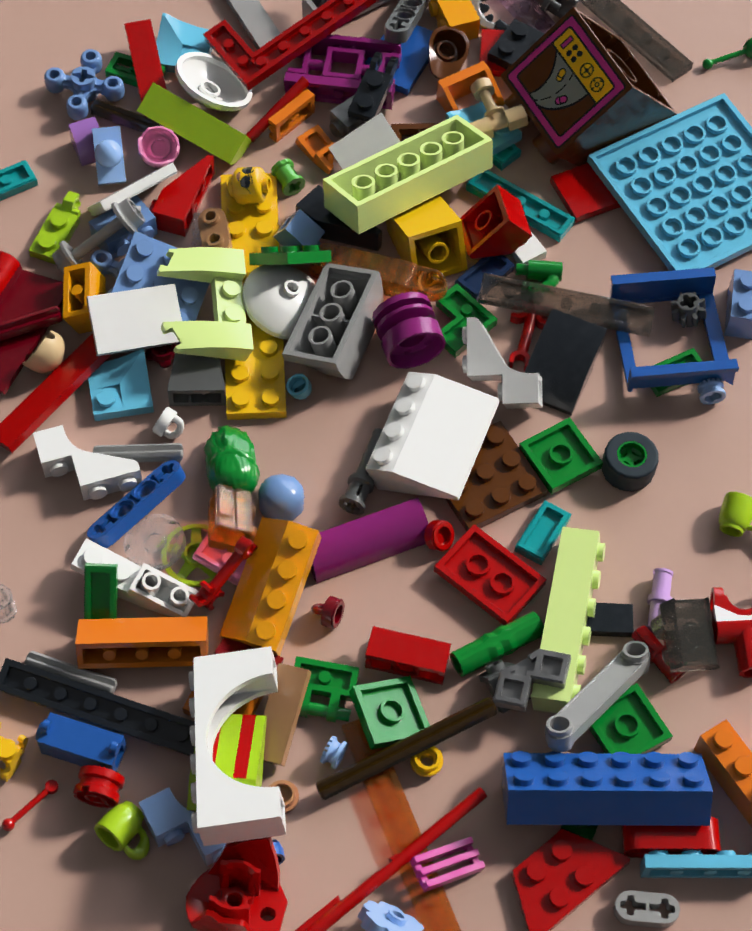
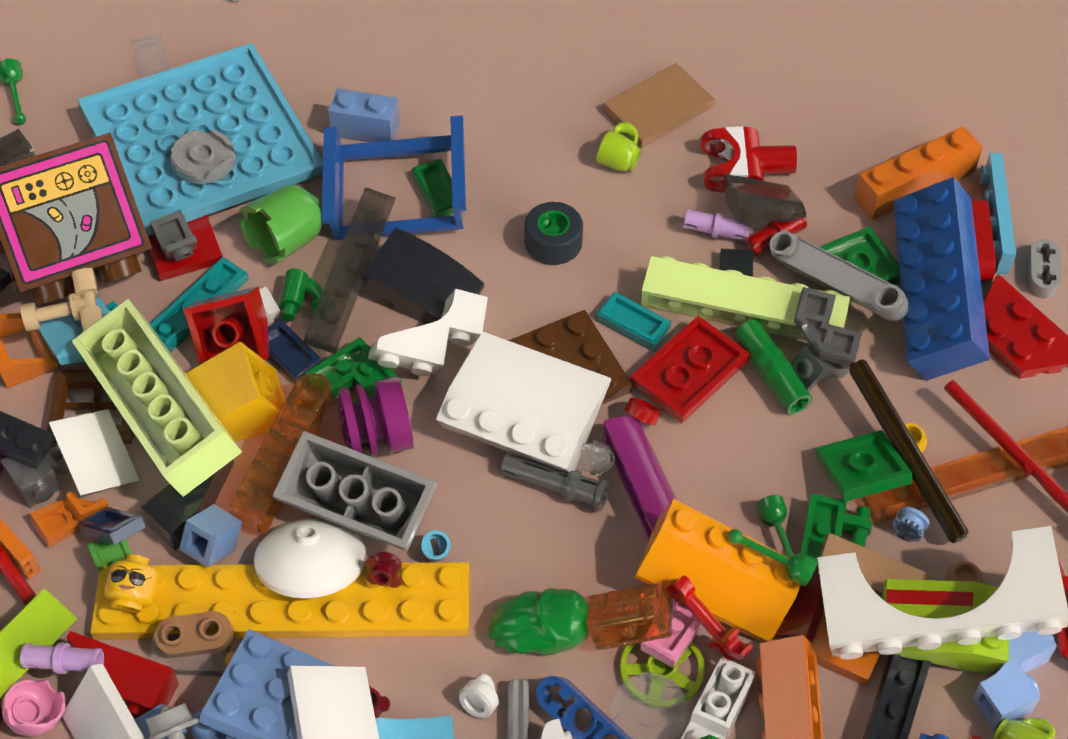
camera: 85 degrees left, 5 degrees down
(187, 152) = (60, 657): none -> lavender pin
(196, 381) = (411, 660): dark grey torso -> none
(229, 333) = (270, 614): yellowish green wedge -> none
(263, 633) = (798, 567): none -> green hinge
(266, 345) = (384, 569): none -> dark red plate
(281, 497) = (587, 570): medium blue hair -> none
(290, 255) = (260, 534): green plate -> none
(303, 170) = (111, 525): none -> tile
(330, 612) = (741, 519): dark red tile -> none
(341, 639) = (773, 512): none -> green hinge
(388, 496) = (596, 458): none -> clear plate
(407, 655) = (791, 448): red piece -> none
(470, 854) = (1030, 423): dark pink tile -> none
(529, 321) = (362, 312): red bar -> none
(560, 455) = (542, 293): green plate -> none
(582, 177) = (174, 236): none -> dark grey bracket
(608, 249) = (281, 222): none -> bright green cylinder
(671, 186) = (203, 156): none -> light grey tile
(688, 309) = (365, 164): dark grey gear -> none
(711, 391) = (471, 157): light blue bush -> none

